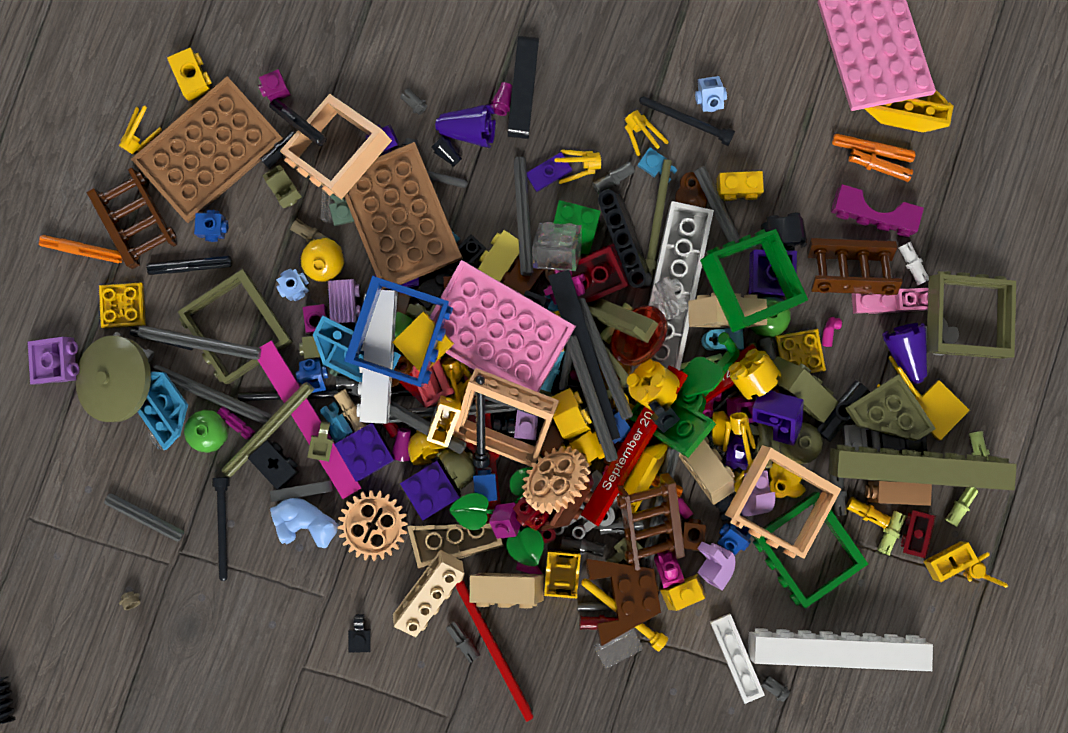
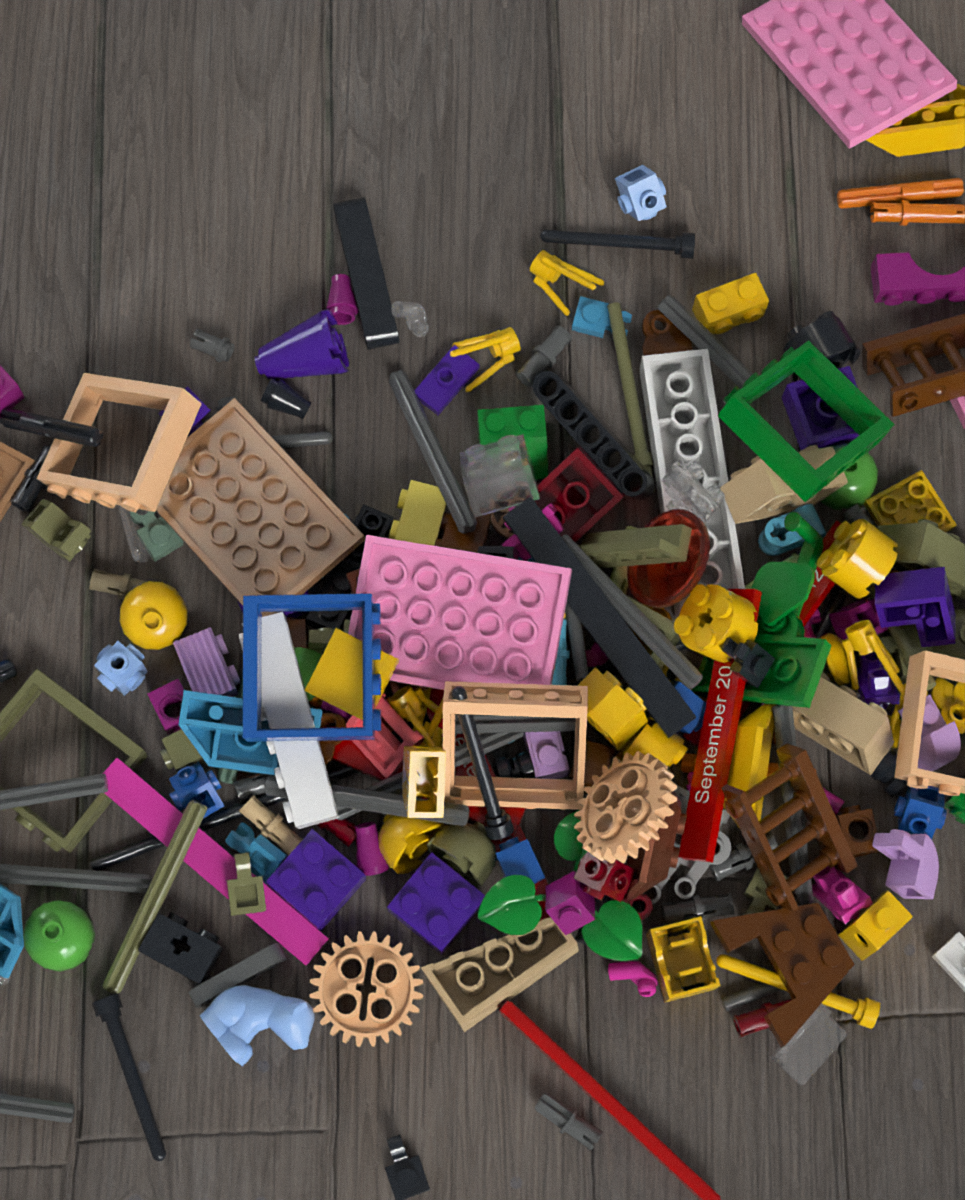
camera: 15 degrees left, 10 degrees down
(236, 423) = (101, 907): magenta axle -> none
(428, 594) = (490, 1060): tan brick -> none
(506, 589) = (608, 1010): tan brick -> none
(543, 125) = (414, 316): none -> clear arm
(591, 399) = (633, 674): dark grey axle -> none
(828, 331) = (938, 466): dark pink arm -> none

